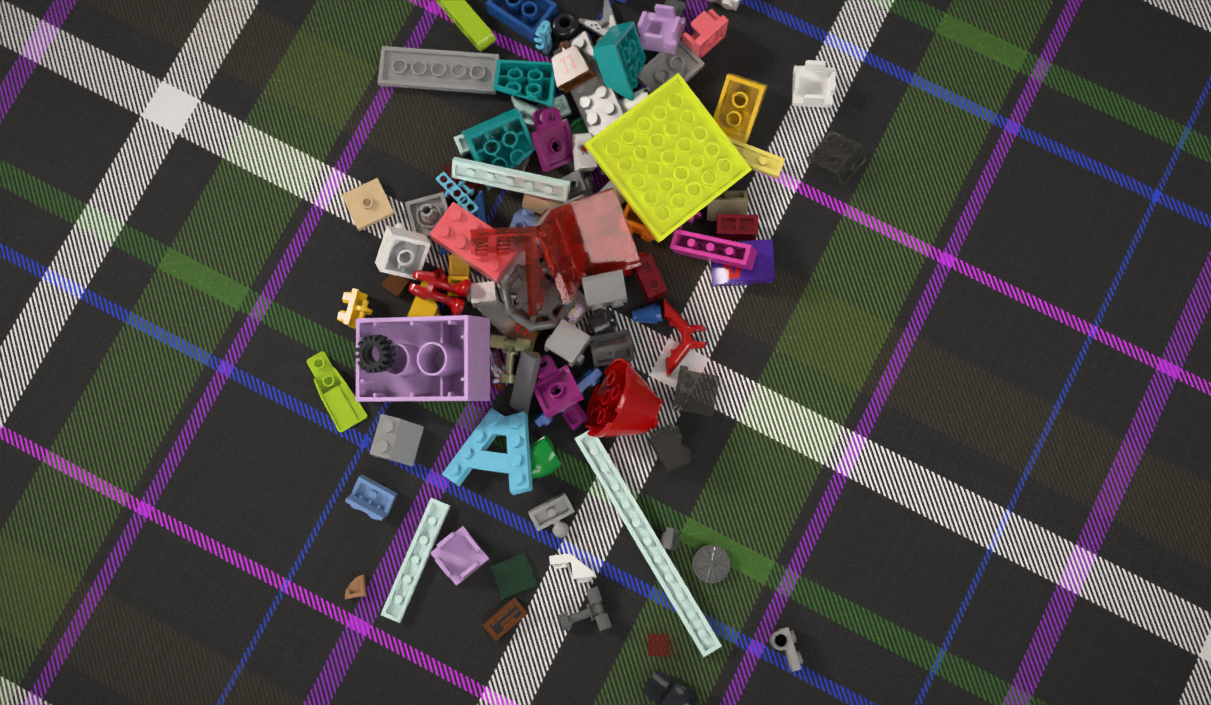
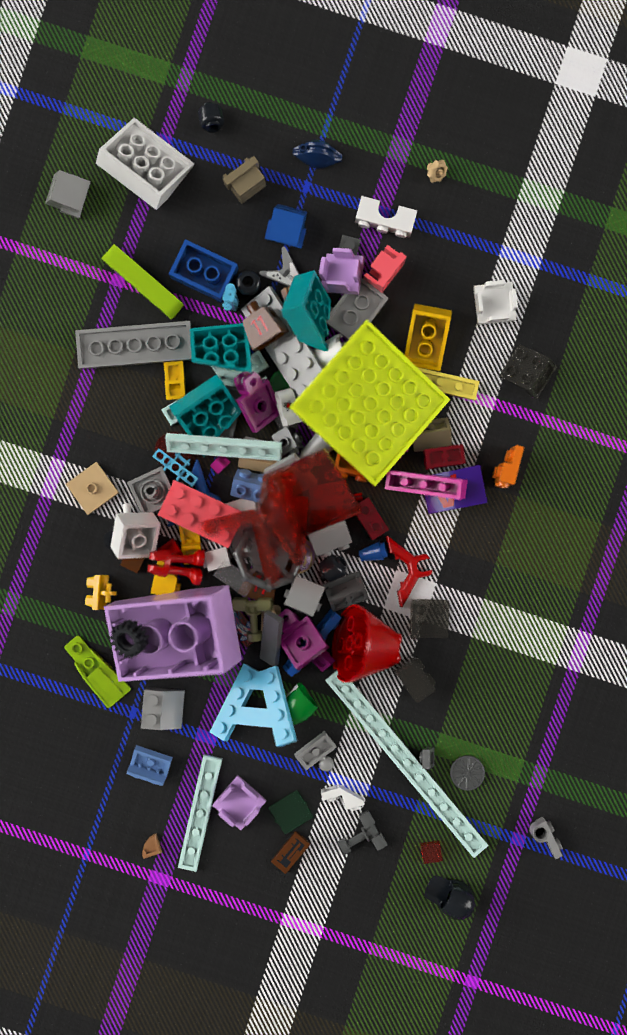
camera: 10 degrees left, 10 degrees up
(473, 109) = (174, 380): none -> yellow slope
(503, 201) = (220, 464): none -> dark pink piece
(798, 251) = (506, 473): none -> orange plate

